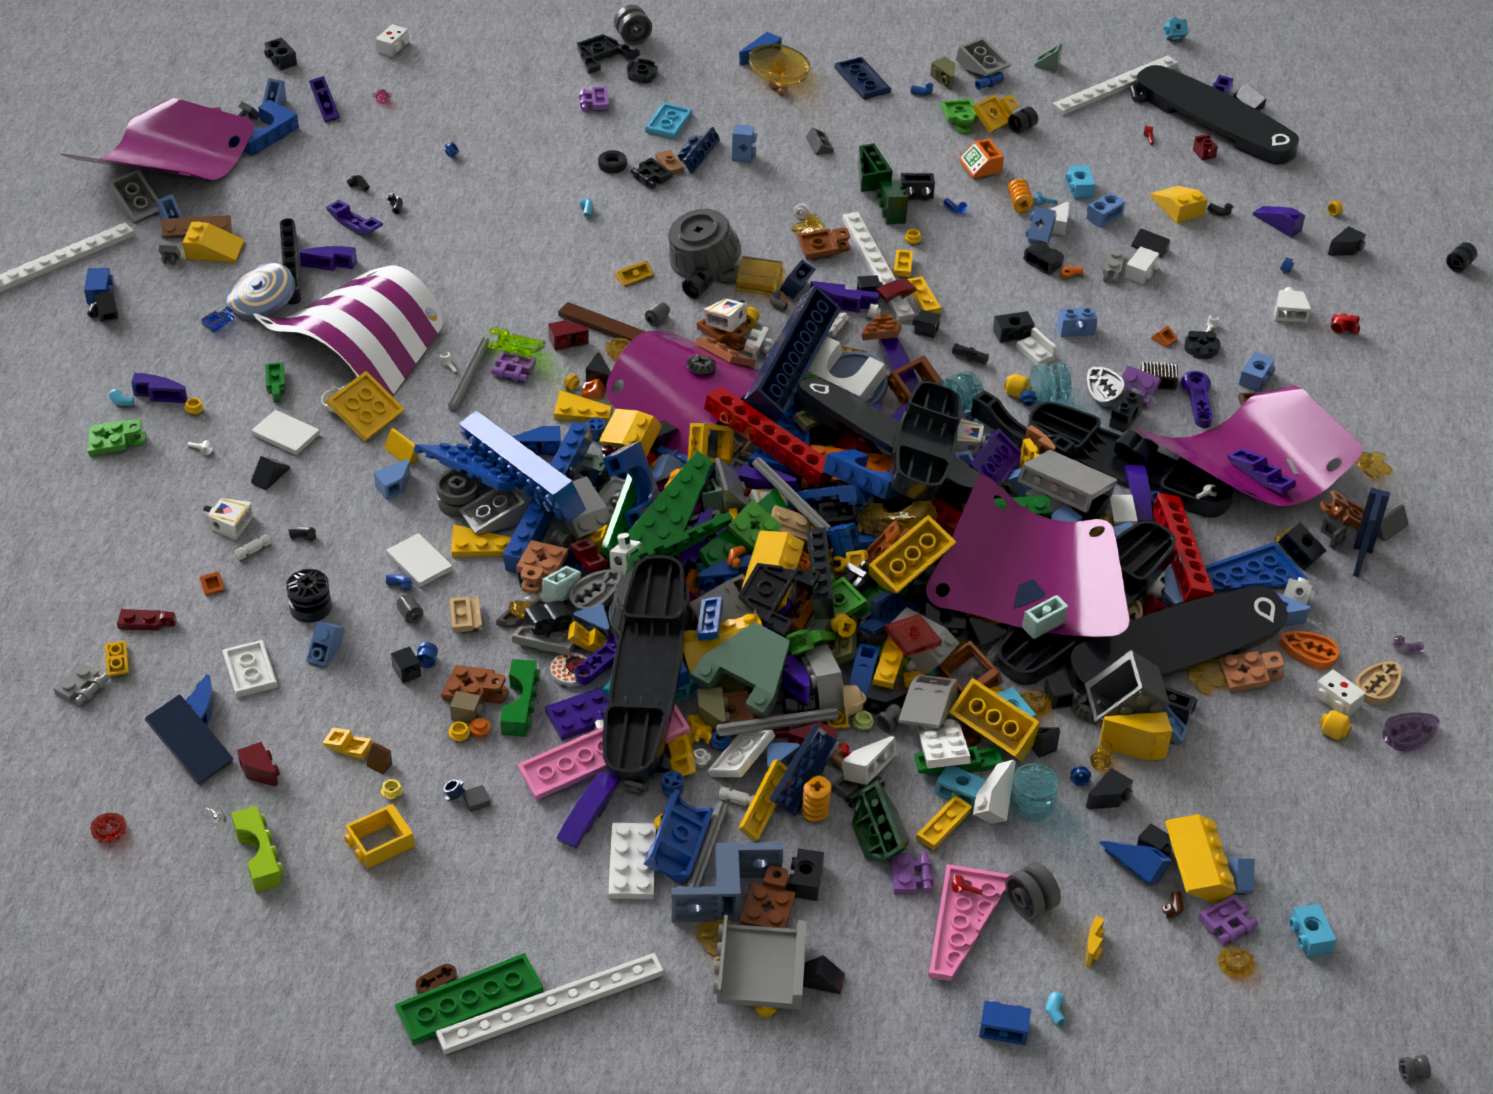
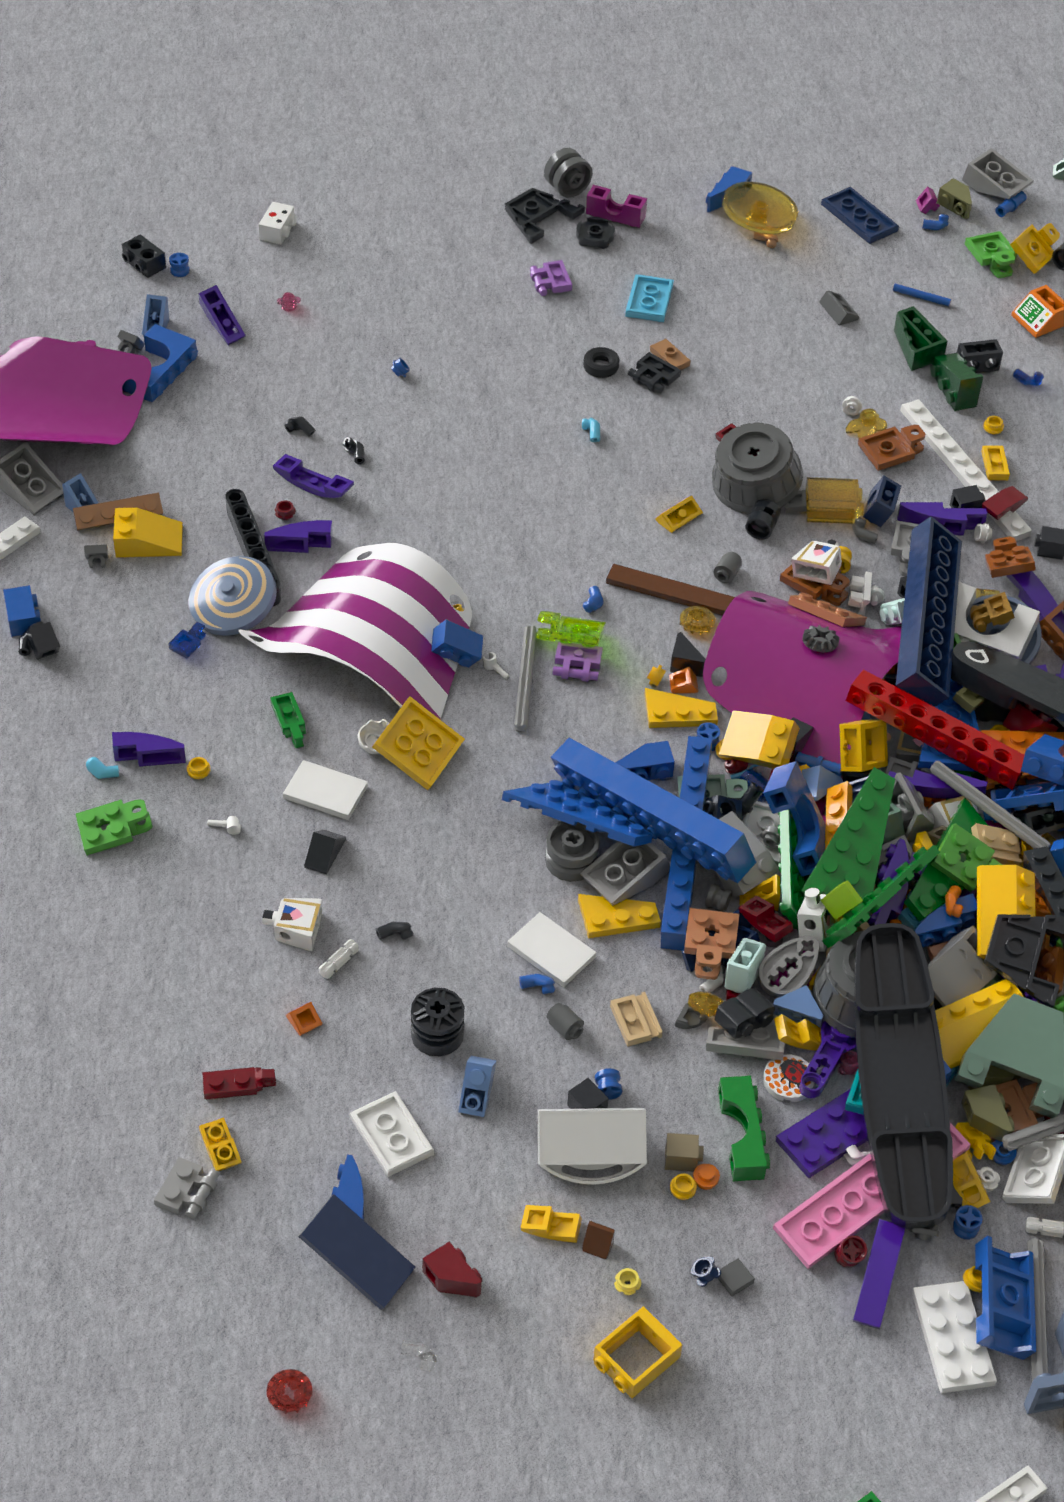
camera: 10 degrees left, 5 degrees up
(262, 868) = (472, 1365): lime arch -> none
(306, 62) = (179, 264): none -> blue wheel
(325, 239) = (285, 510): none -> dark red plate
(392, 479) = (482, 841): medium blue slope -> none
(395, 688) = (592, 1141): none -> white piece
(401, 447) = (478, 794): yellow slope -> none
(420, 341) = (457, 643): none -> blue brick
(482, 683) = (691, 1112): dark orange plate -> none
(542, 327) = (595, 600): none -> blue arm
(567, 334) = (628, 610): dark red slope -> none
(570, 785) = (855, 1249): none -> dark red wheel
(642, 540) = (841, 899): none -> lime slope
(652, 49) = (600, 204): none -> magenta arch
(698, 148) = (698, 333): dark blue bracket -> none
(710, 618) = (958, 995): blue plate -> none
(743, 143) = (756, 322): medium blue brick -> none
(851, 361) = (994, 611): none -> pearl gold plate
(891, 139) = (922, 295): none -> blue bar
(921, 72) = (927, 201): none -> magenta tile
(924, 296) = (1036, 506): yellow plate -> none

